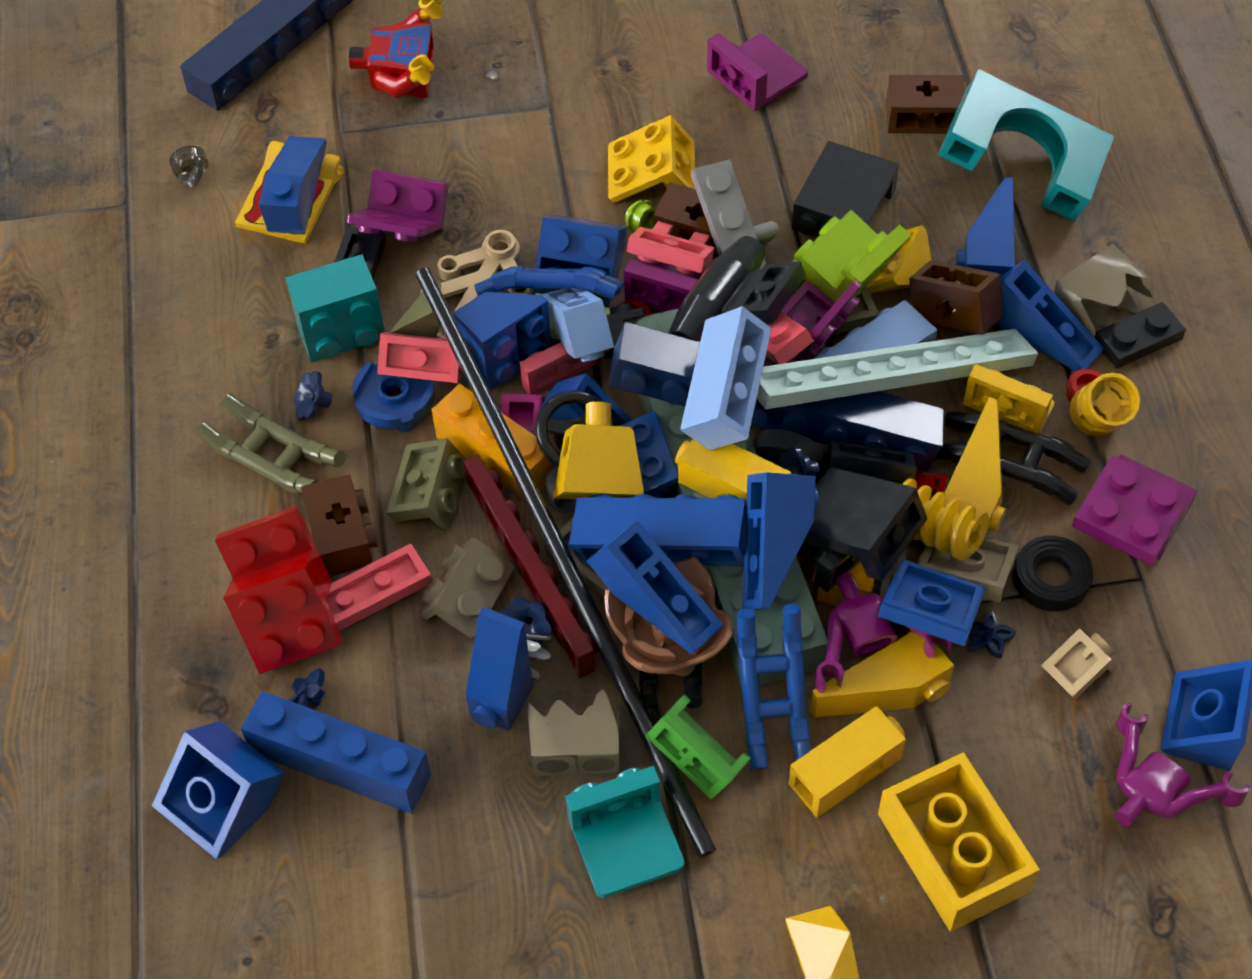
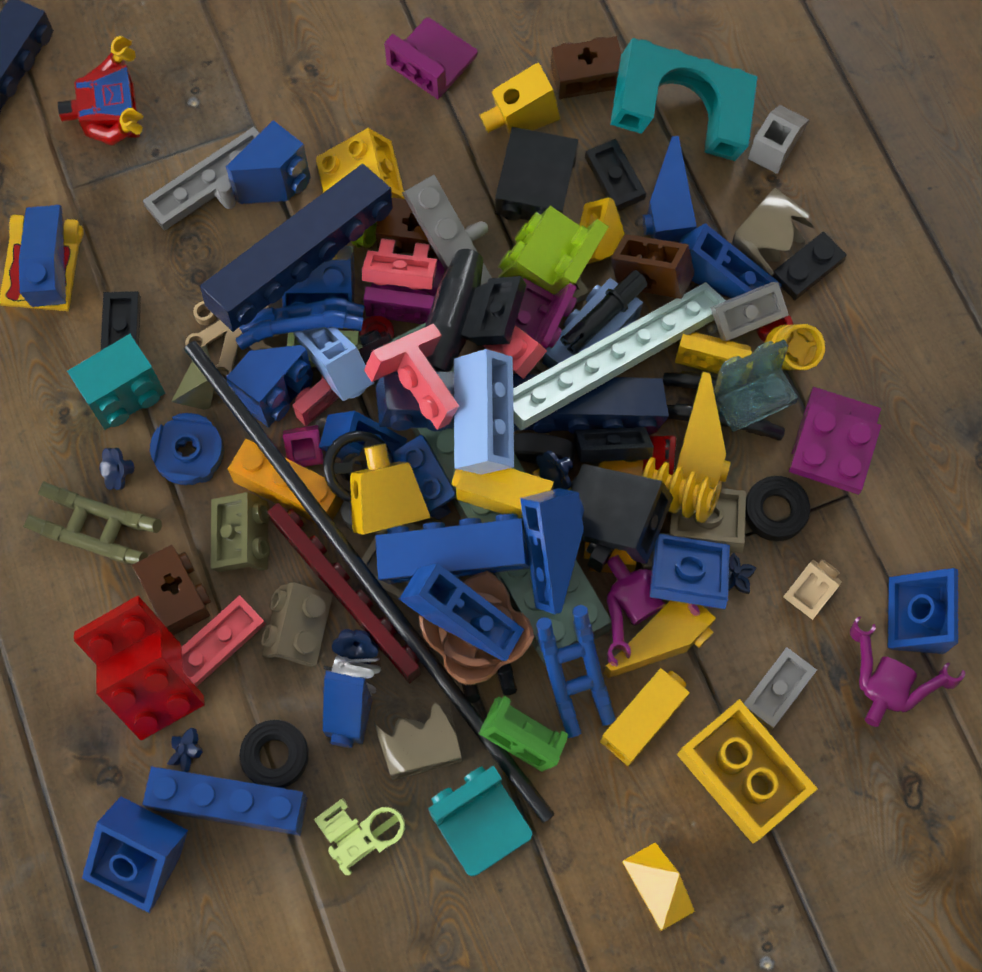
camera: 15 degrees left, 15 degrees up
(402, 205) = (148, 265): magenta bracket -> none
(407, 692) = (263, 733): none -> black tyre
(417, 358) = (201, 419): coral plate -> none
(474, 829) = (350, 837): none -> yellowish green piece
(490, 143) = (198, 185): none -> light grey plate
(554, 137) = (269, 167): none -> blue slope
(563, 203) = (297, 247): none -> dark blue brick
(658, 313) = (416, 373): none -> coral bracket
(846, 118) = (523, 102): none -> yellow torso
(902, 321) = (614, 302): none -> black axle
(934, 209) = (615, 174): none -> black plate
(1019, 762) = (779, 688): none -> light grey plate
(1047, 428) = (754, 386): none -> clear light blue bracket
(1060, 360) = (749, 311): none -> light grey plate
(1124, 202) = (777, 138): none -> light grey slope

